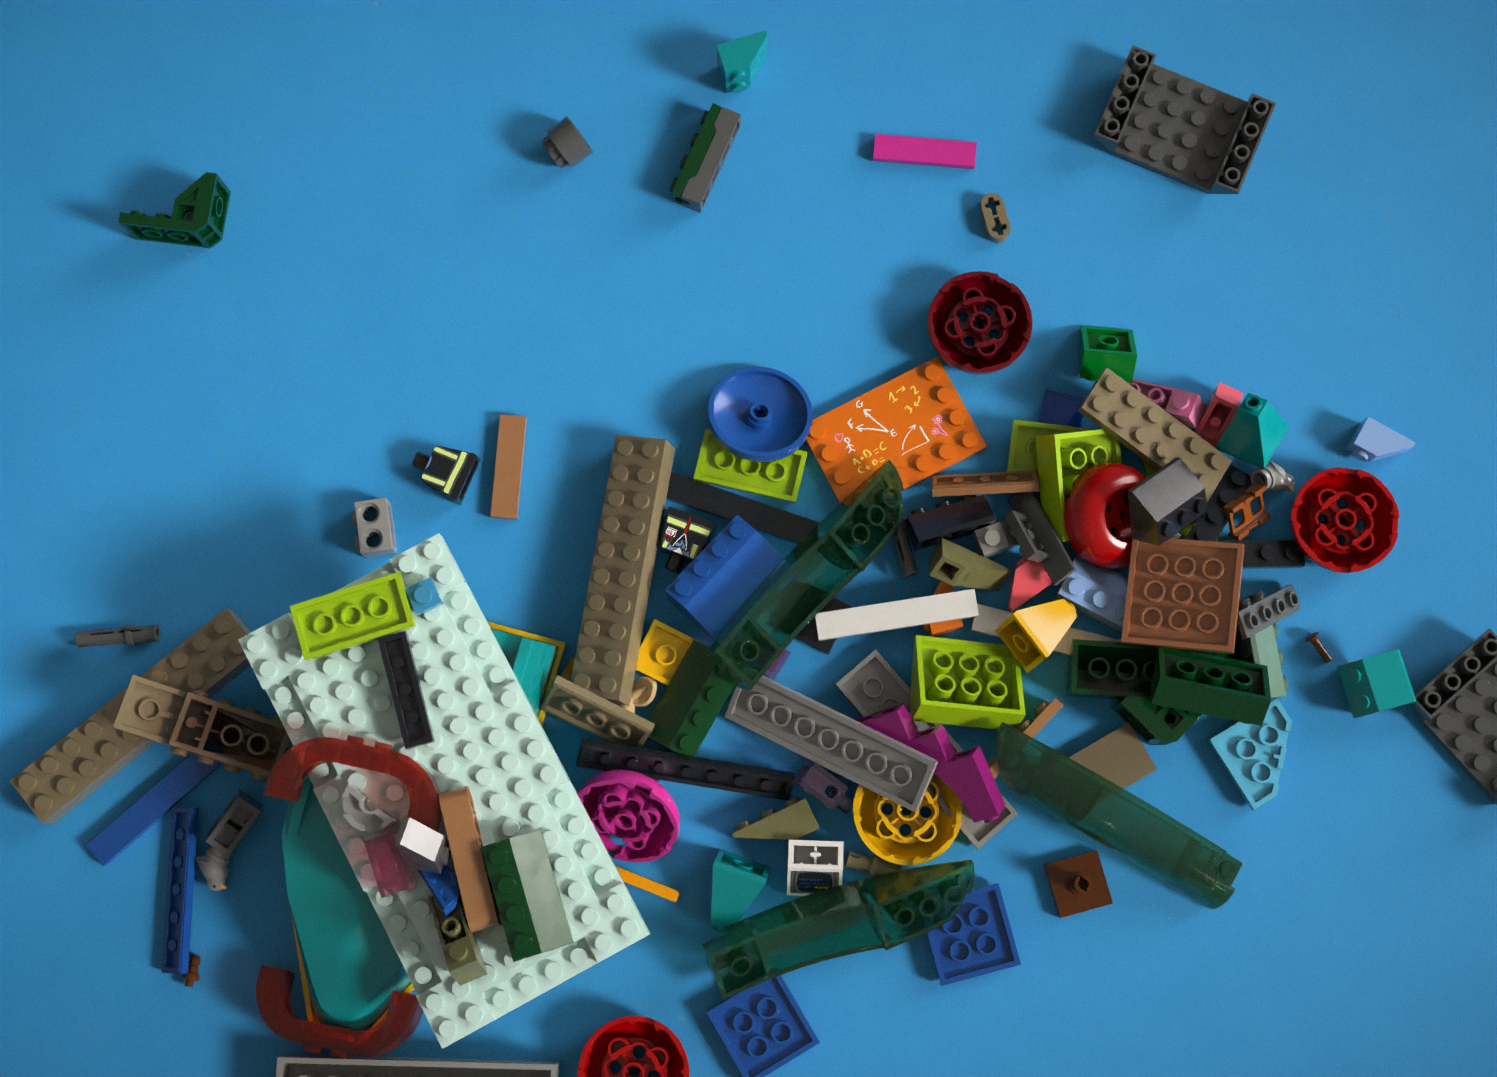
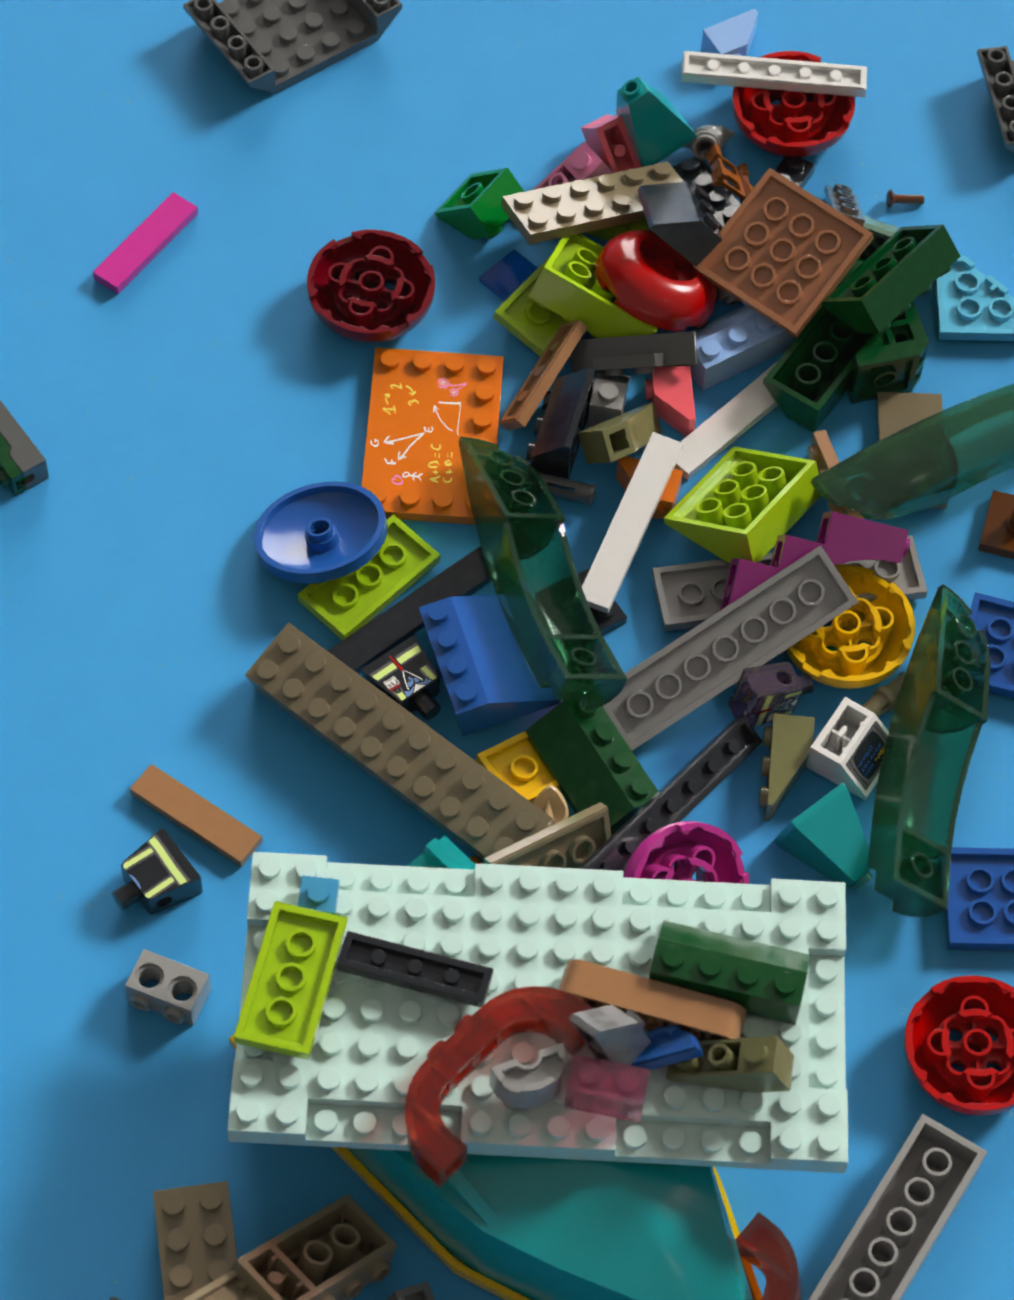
camera: 65 degrees left, 20 degrees down
(989, 219) = (265, 221): dark tan beam -> none
(1036, 631) = (735, 412): yellow slope -> none
(1357, 493) = (774, 74): none -> white tile
(1376, 683) = (973, 164): teal slope -> none

